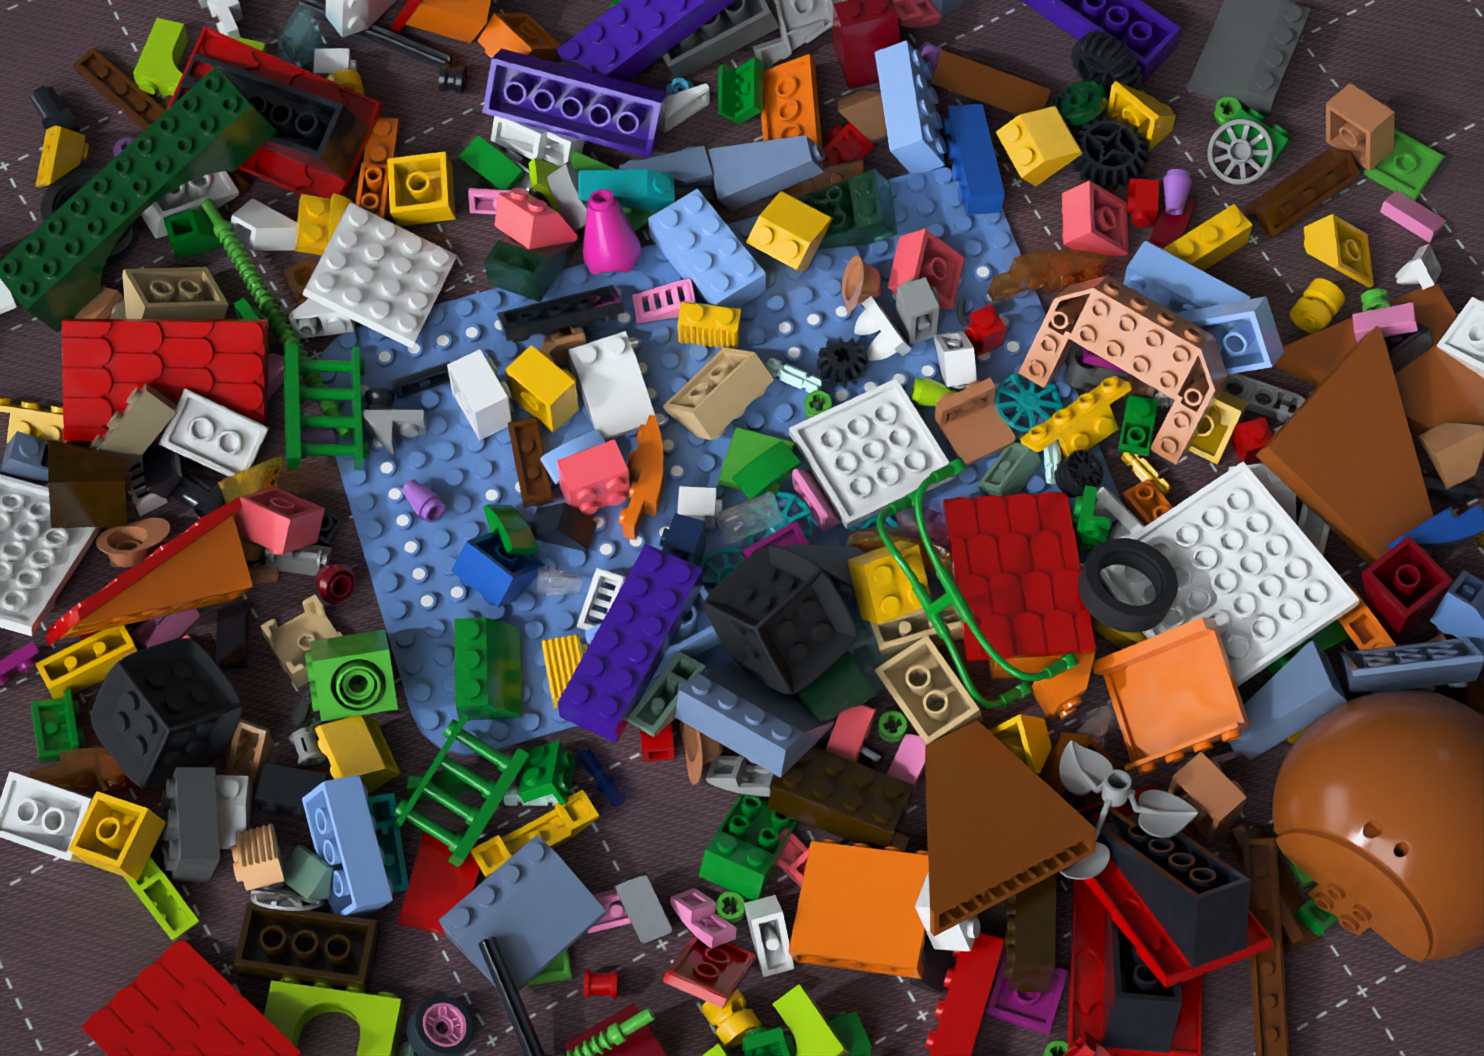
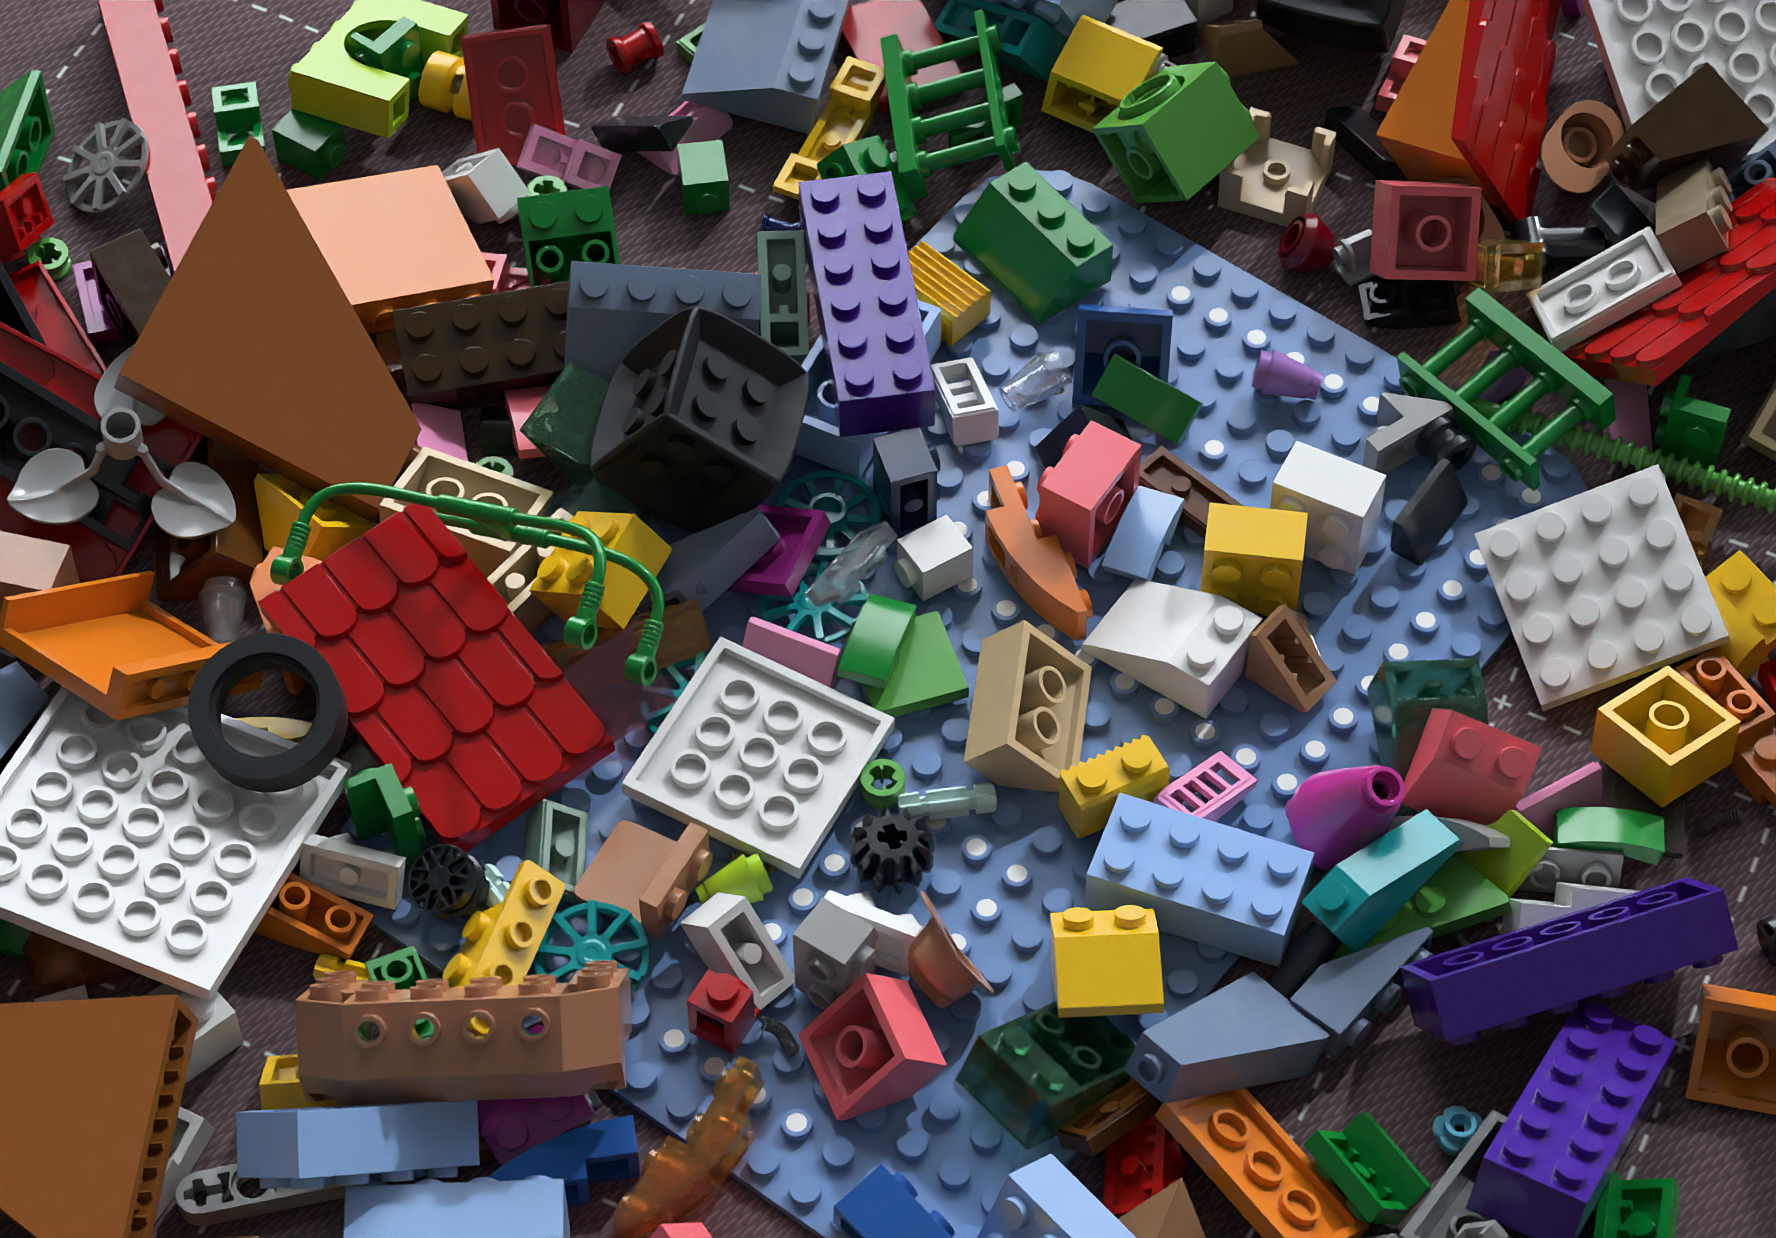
camera: 145 degrees right, 10 degrees down
(561, 312) = (1319, 675): black plate -> none
(632, 852) = (703, 177): none -> brick
(684, 105) = (1441, 1081): white slope -> none
(1250, 439) = (223, 1090): red brick -> none

